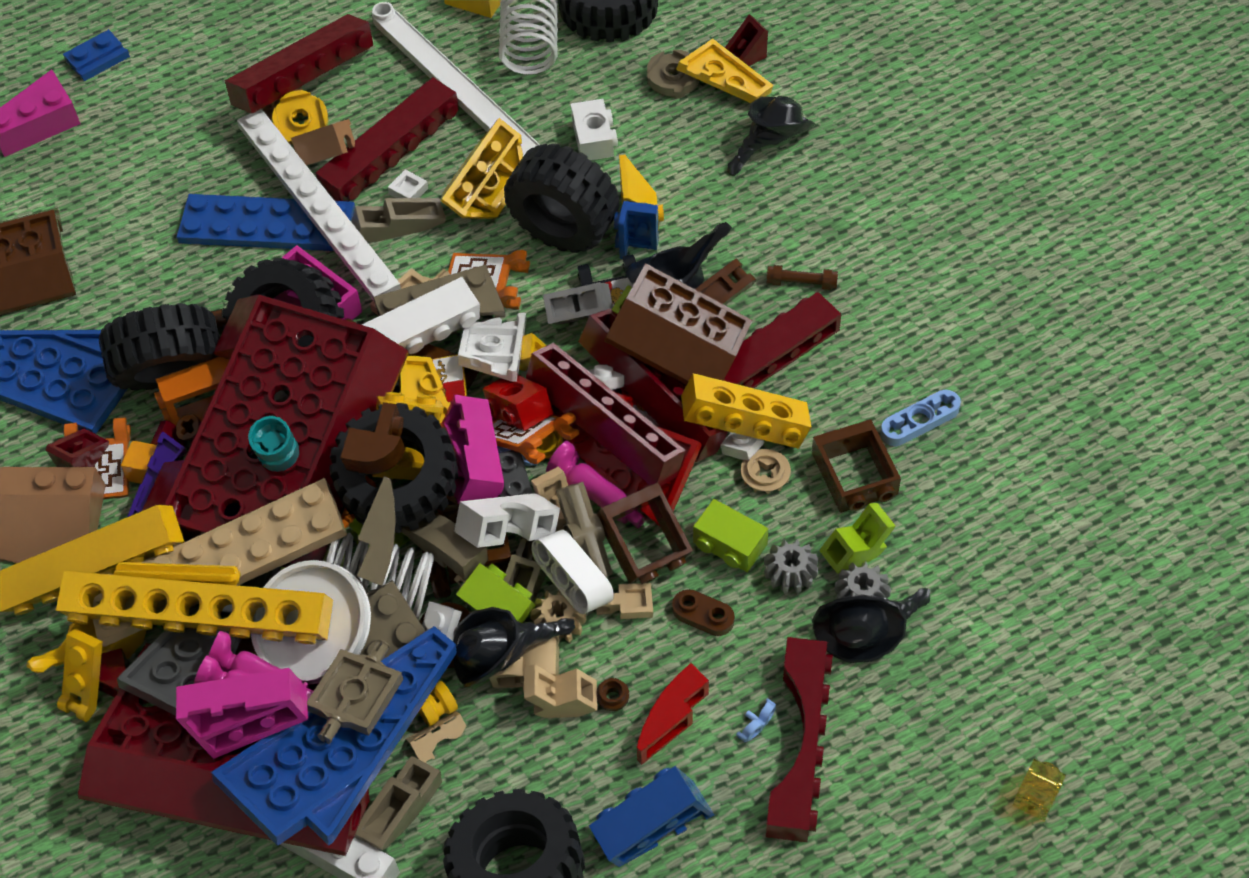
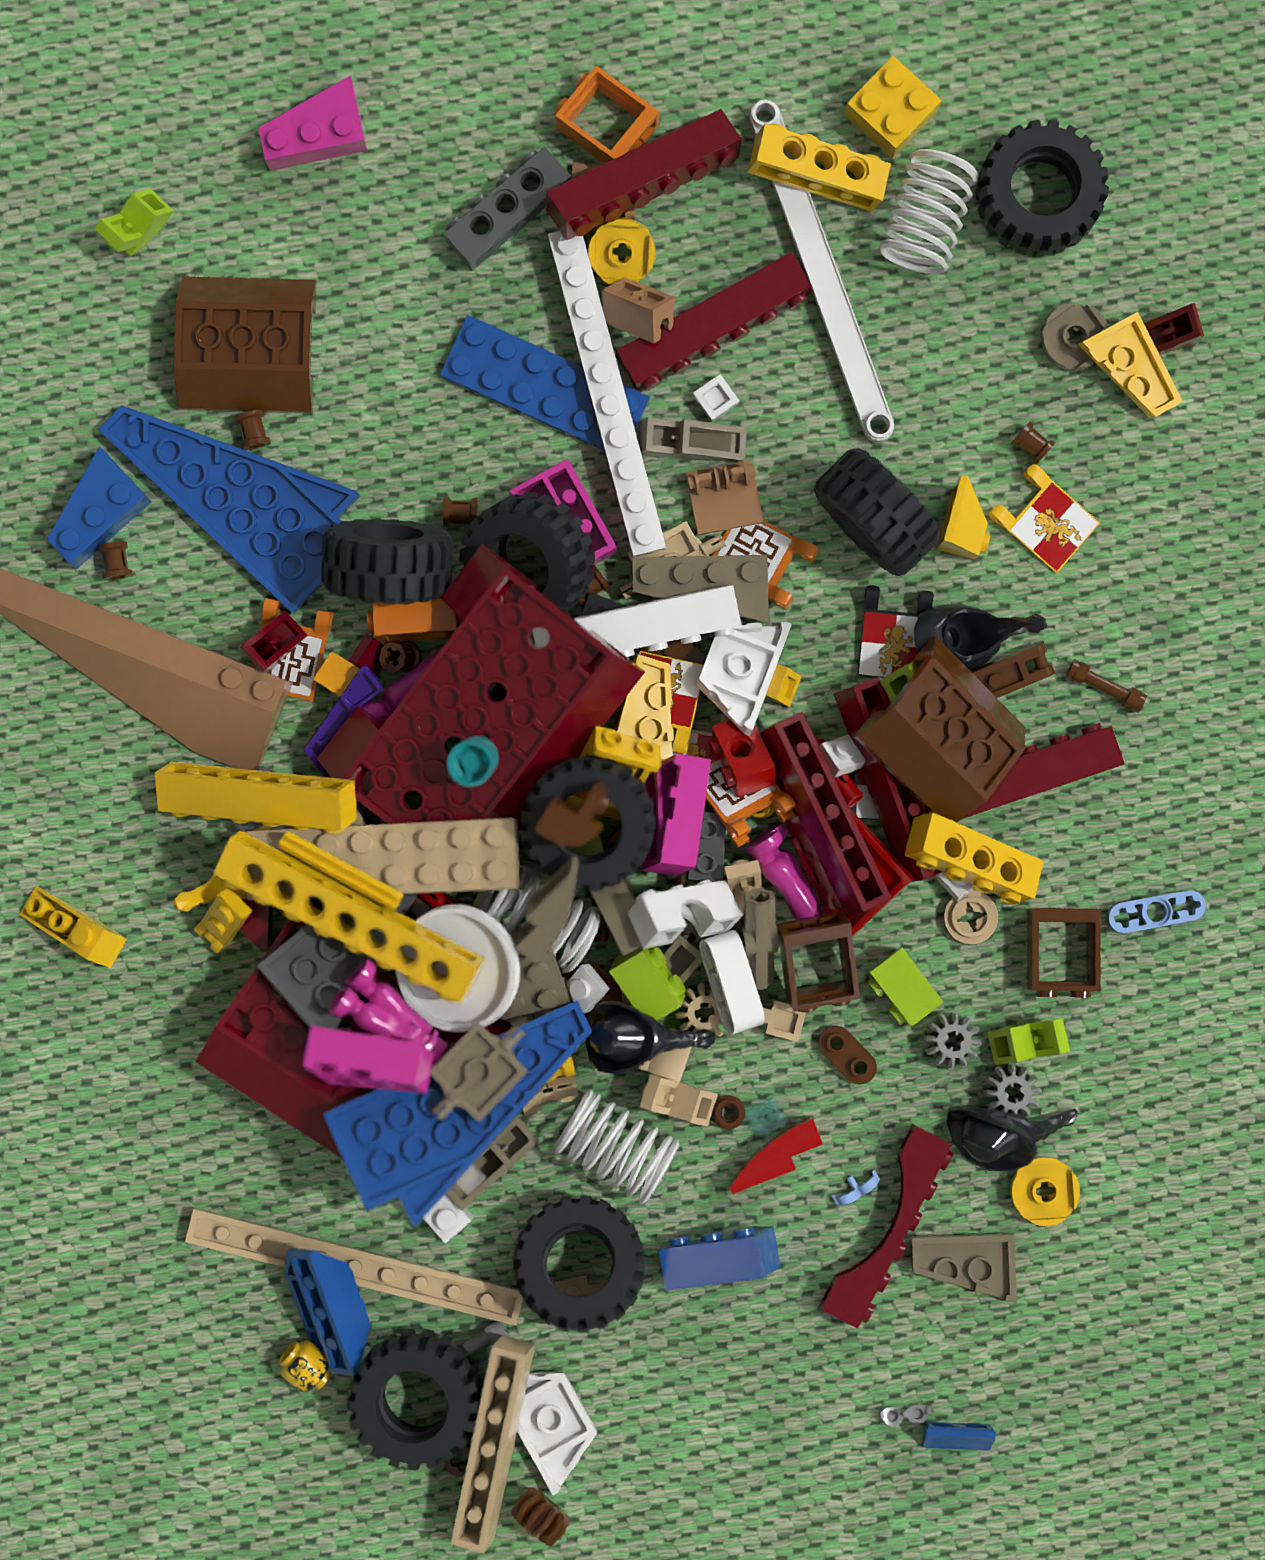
camera: 15 degrees right, 30 degrees up
(24, 313) = (252, 429): none -> reddish brown bush
(96, 55) = (408, 48): blue plate -> none
(196, 124) = (475, 248): none -> dark grey brick
(259, 30) = (587, 86): none -> orange window
(435, 25) = (802, 172): none -> yellow brick
(438, 245) = (724, 497): none -> medium nougat hinge
(480, 181) = (805, 421): yellow wedge -> none
(563, 750) = (581, 1119): none -> white piece
(577, 303) = (849, 646): light grey brick -> none
(593, 130) = (952, 372): white brick -> none
(636, 227) = (954, 563): blue bracket -> none
(647, 678) = (764, 1126): none -> clear light blue plate
(670, 142) = (1032, 443): none -> reddish brown bush
(704, 189) = (1050, 524): none -> flag
(773, 122) = (1160, 466): black hat -> none
(889, 744) = (969, 1261): none -> dark tan wing
(935, 645) = (1059, 1204): none -> yellow plate
(1039, 789) = (1088, 1358): clear yellow brick -> none

